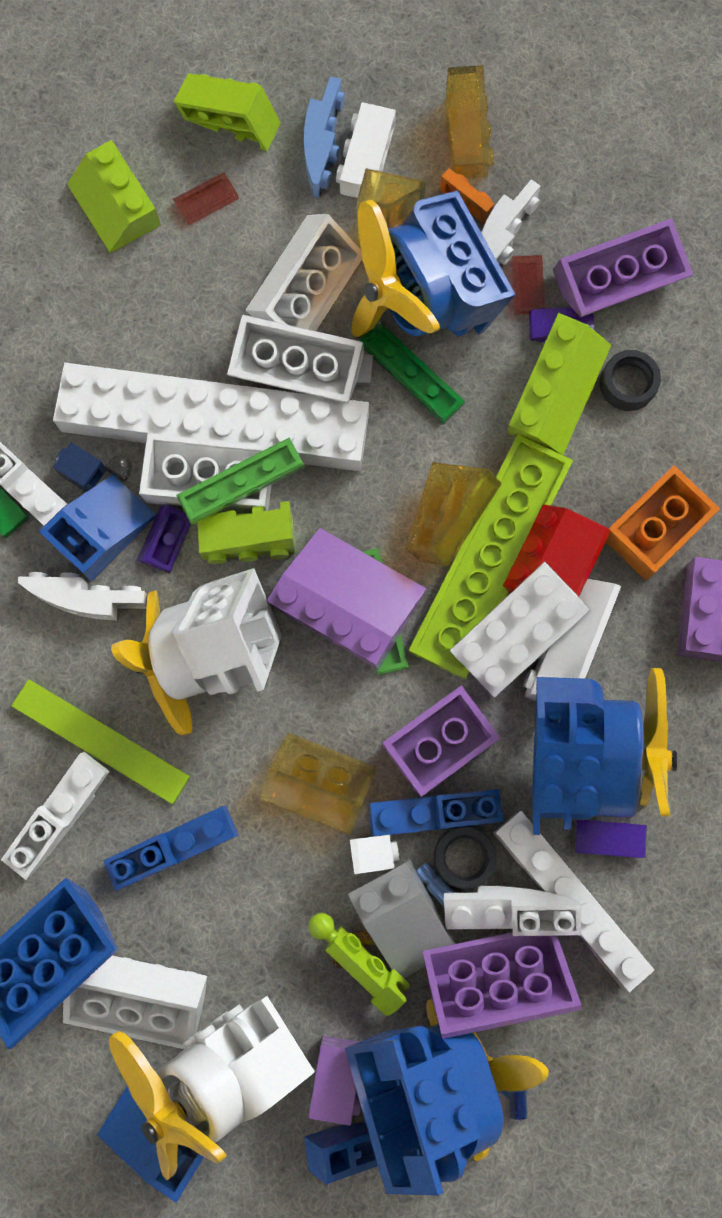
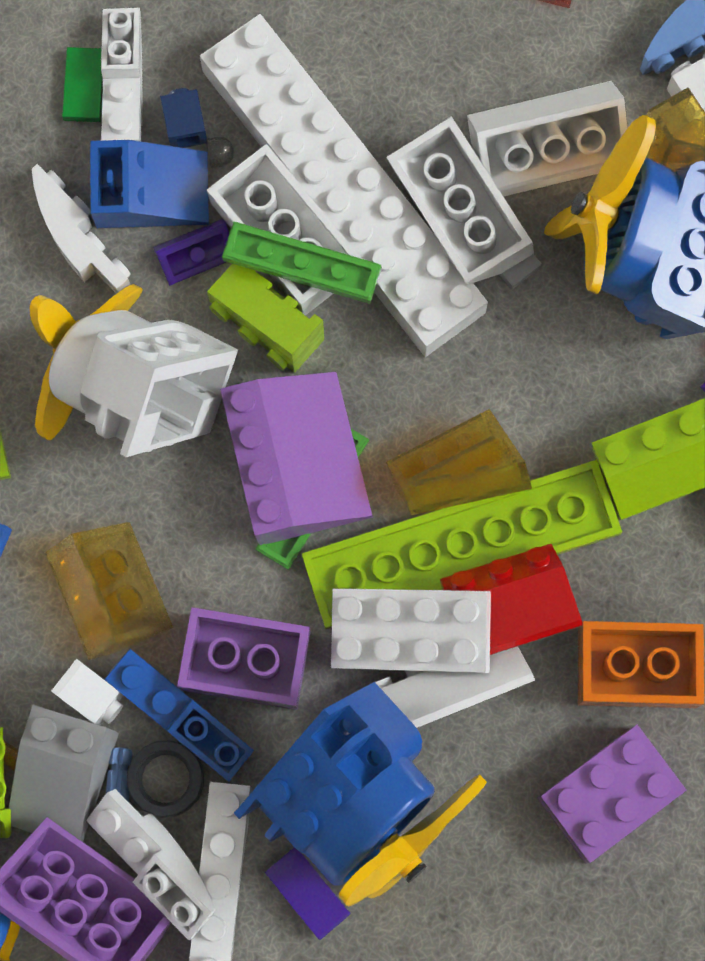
camera: 45 degrees right, 0 degrees up
(412, 373) = (561, 313): green tile -> none

